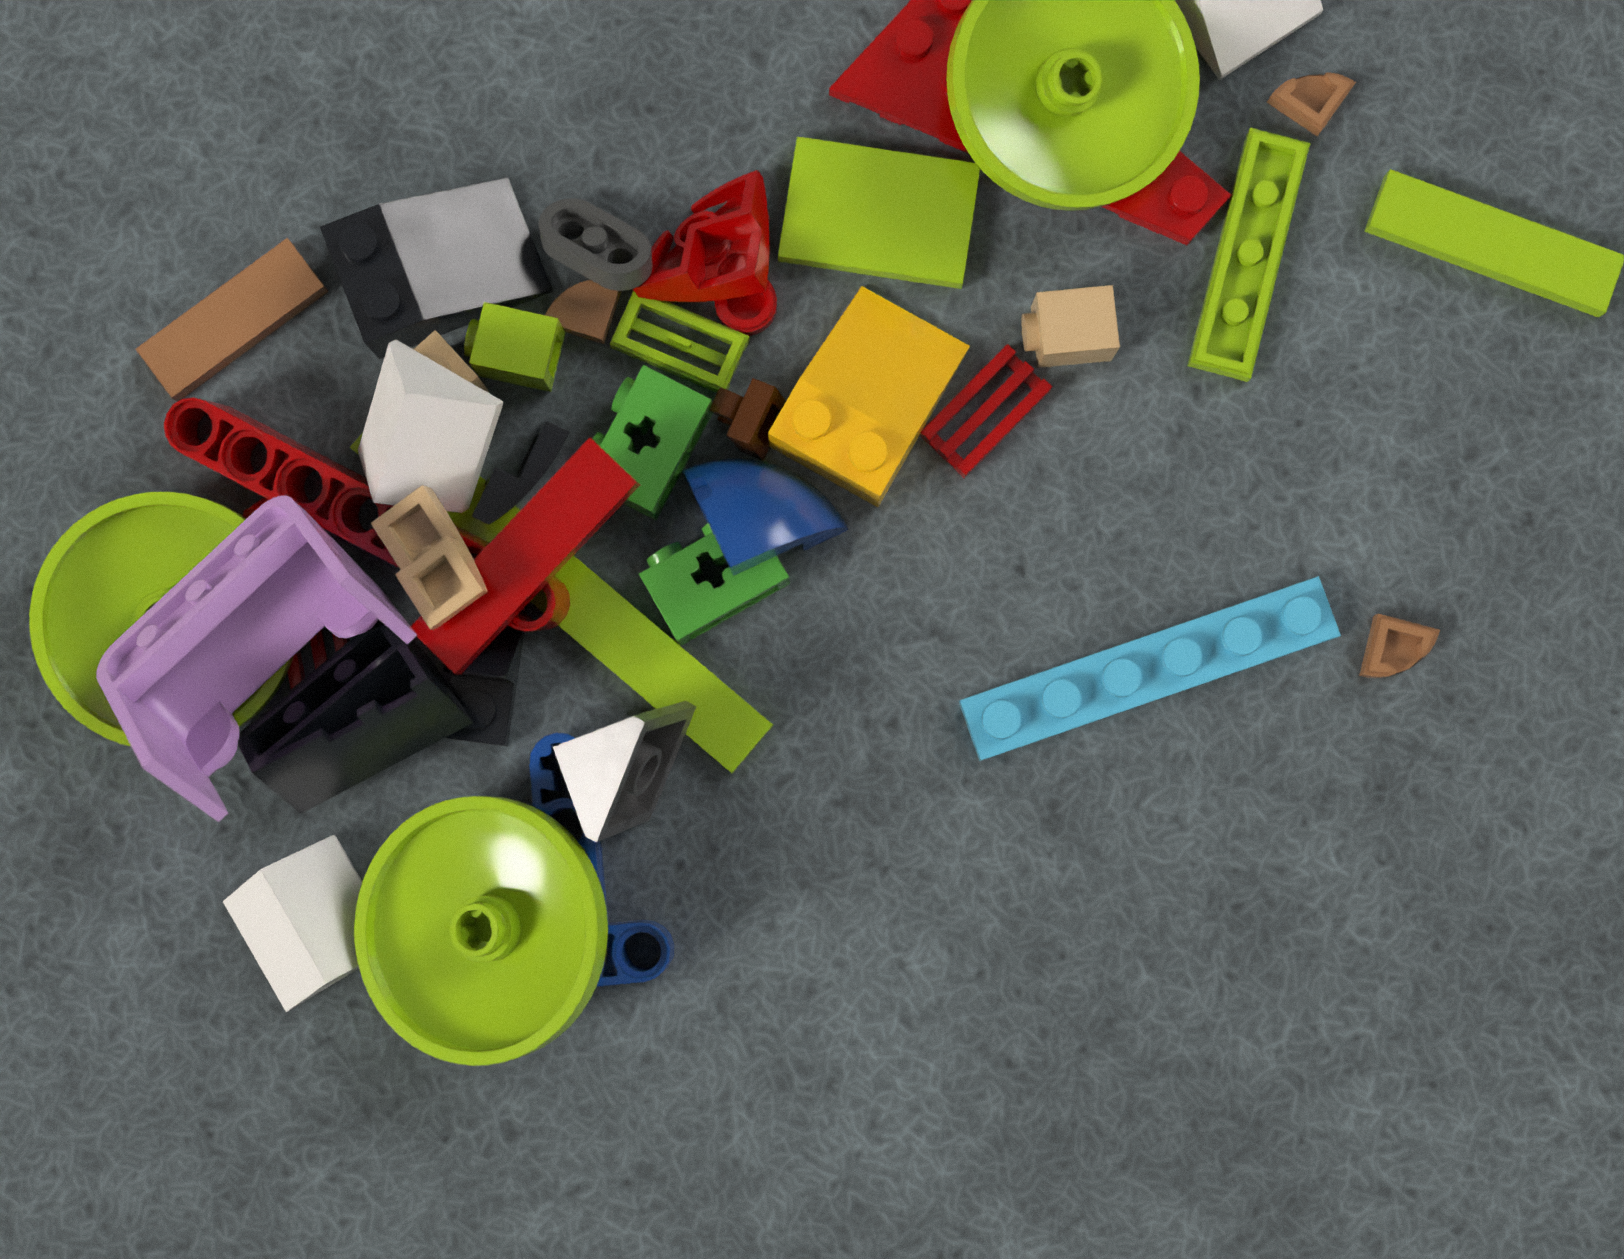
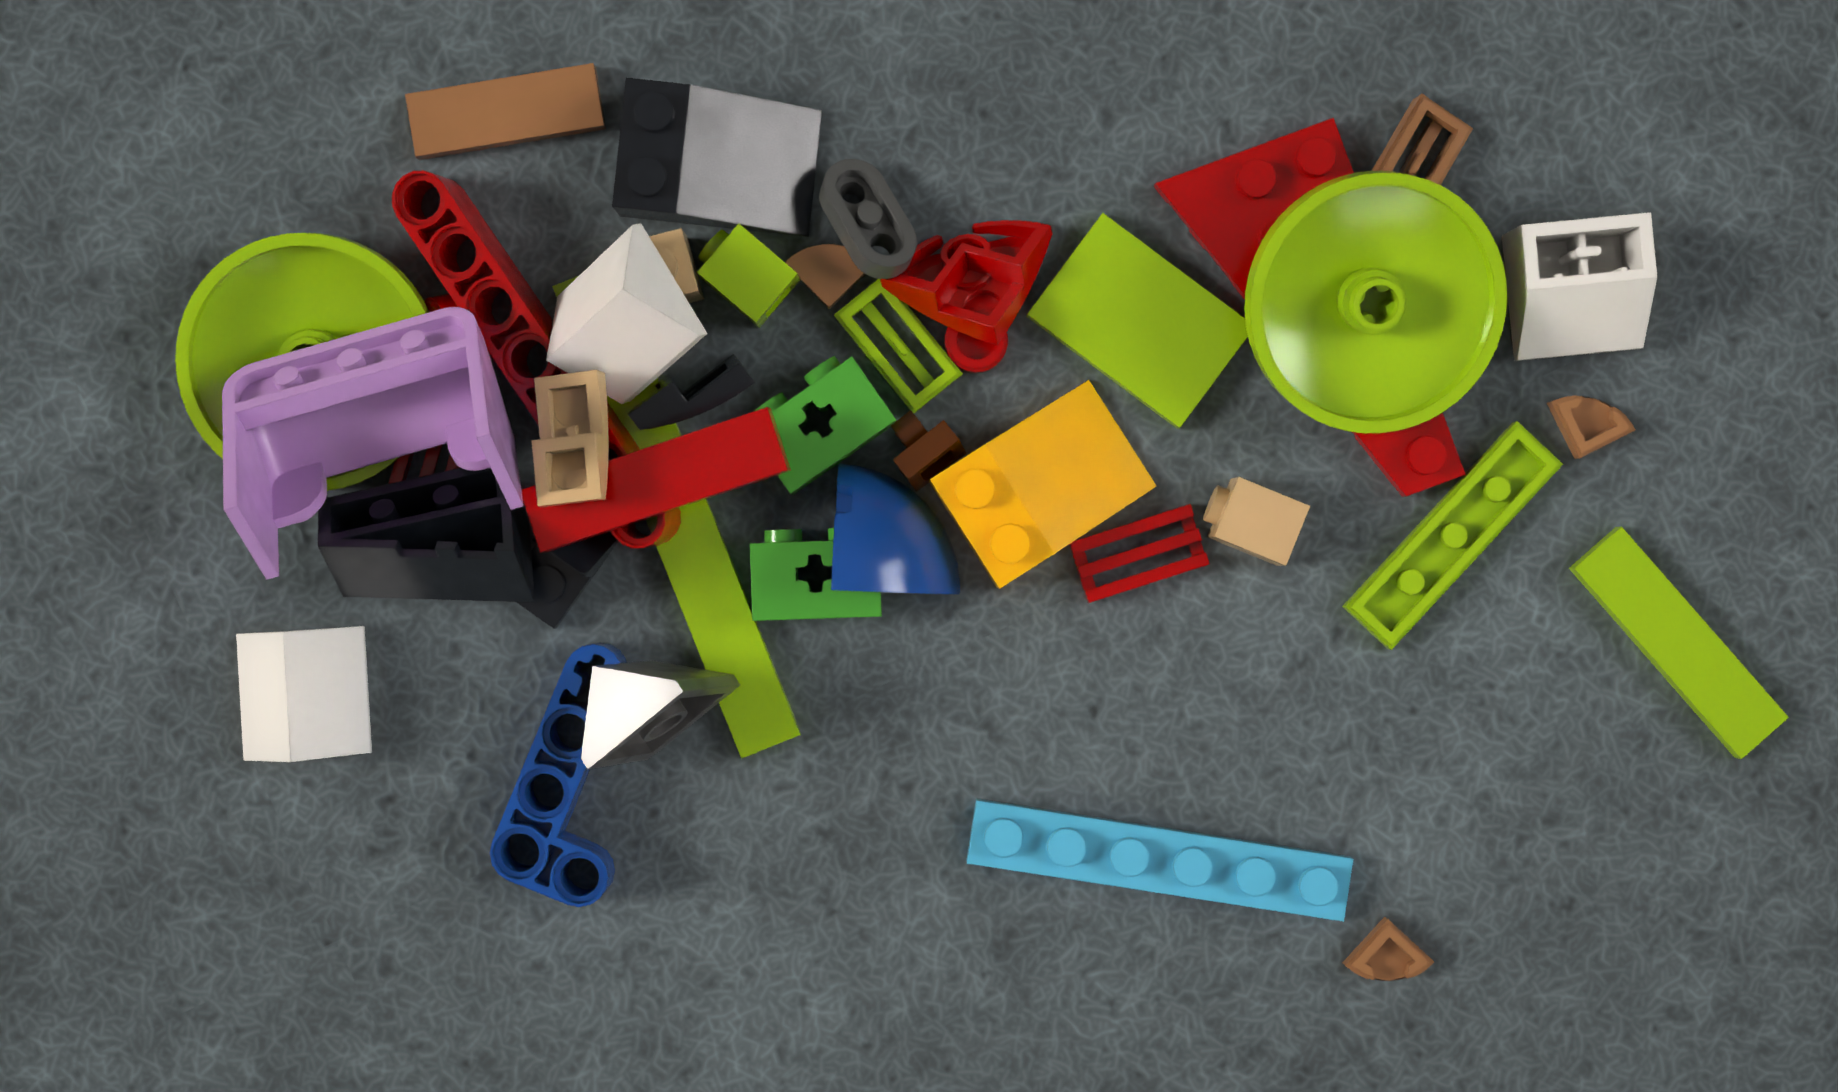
camera: 25 degrees right, 5 degrees up
(480, 930) = (448, 787): lime dish -> none

